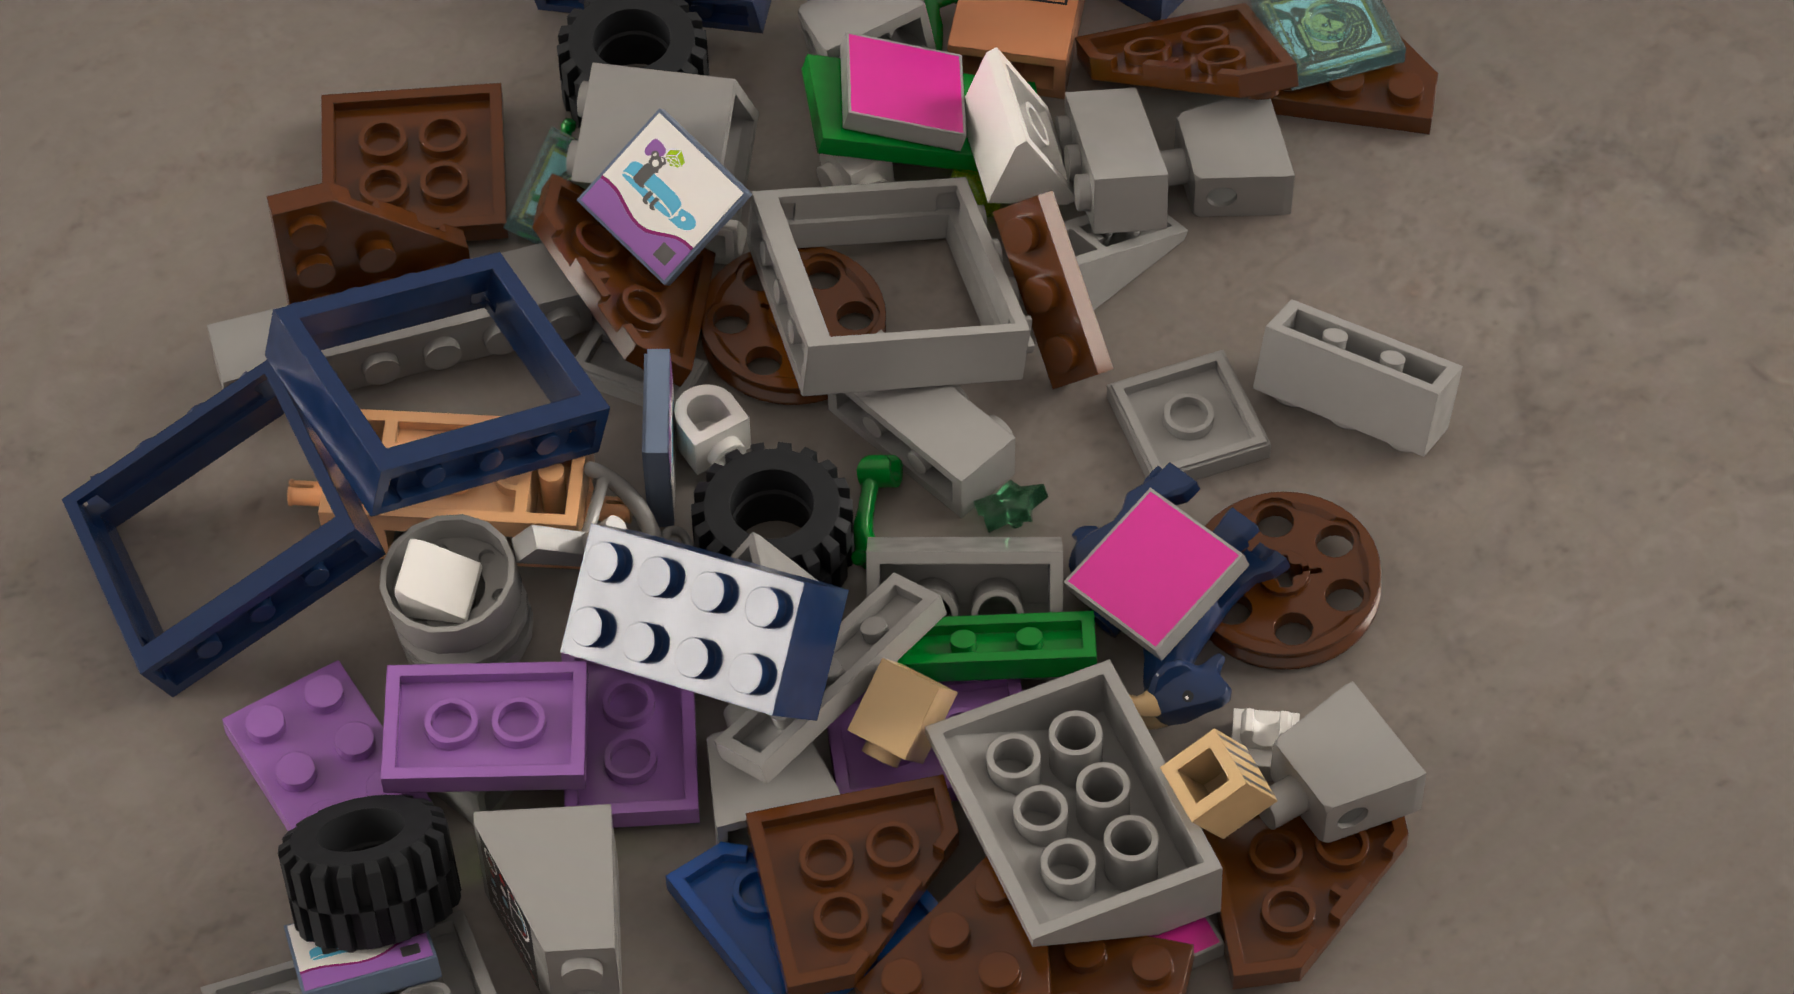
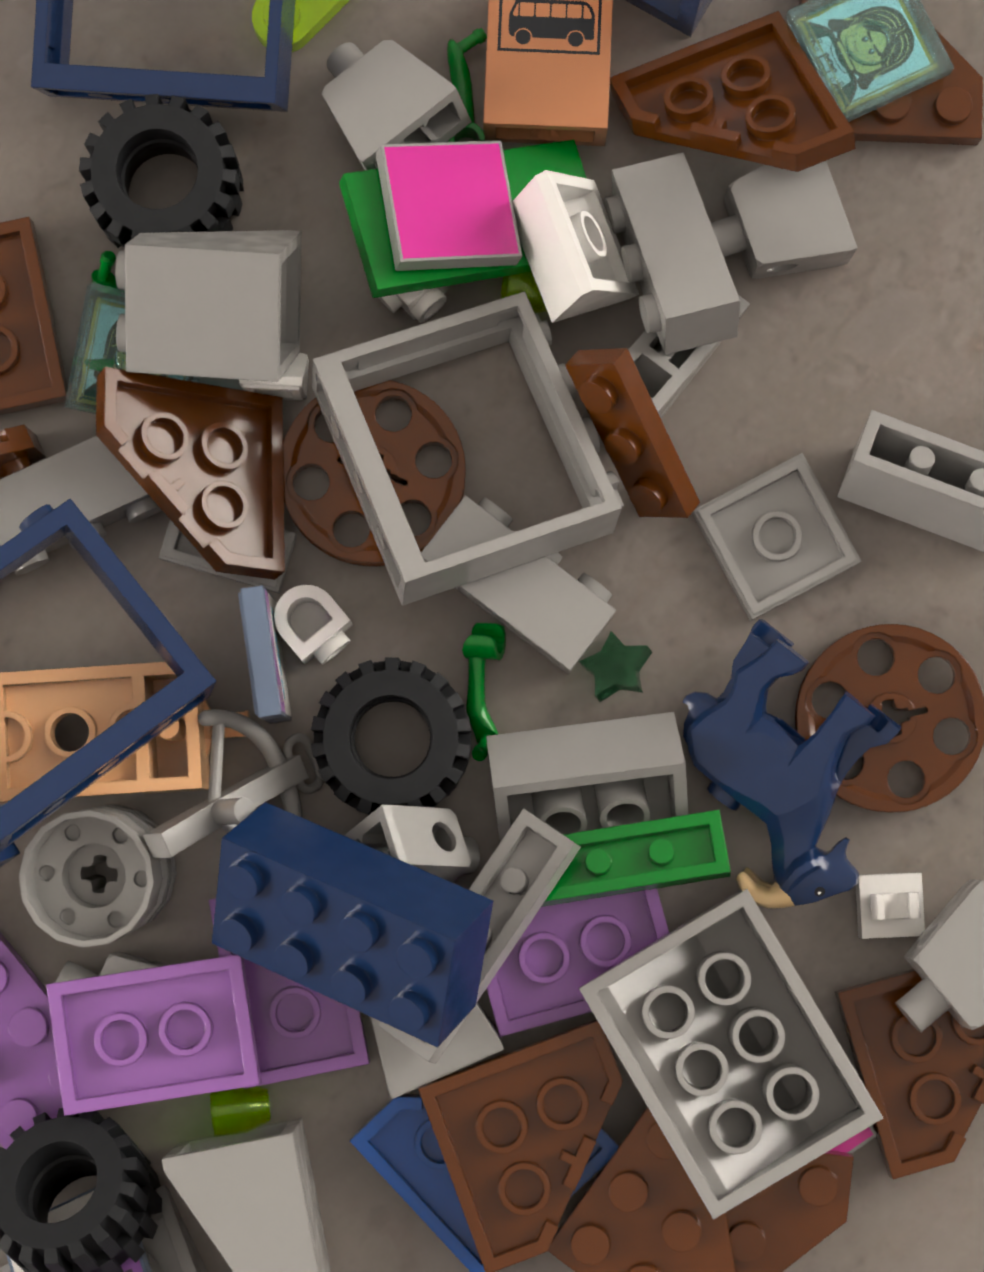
camera: 10 degrees left, 30 degrees up
(436, 583) = (78, 882): white slope -> none
(664, 197) = (226, 389): tile -> none
(897, 711) = (552, 961): tan brick -> none
(1156, 573) = (778, 774): dark pink tile -> none
(1218, 784) = (870, 1028): tan brick -> none

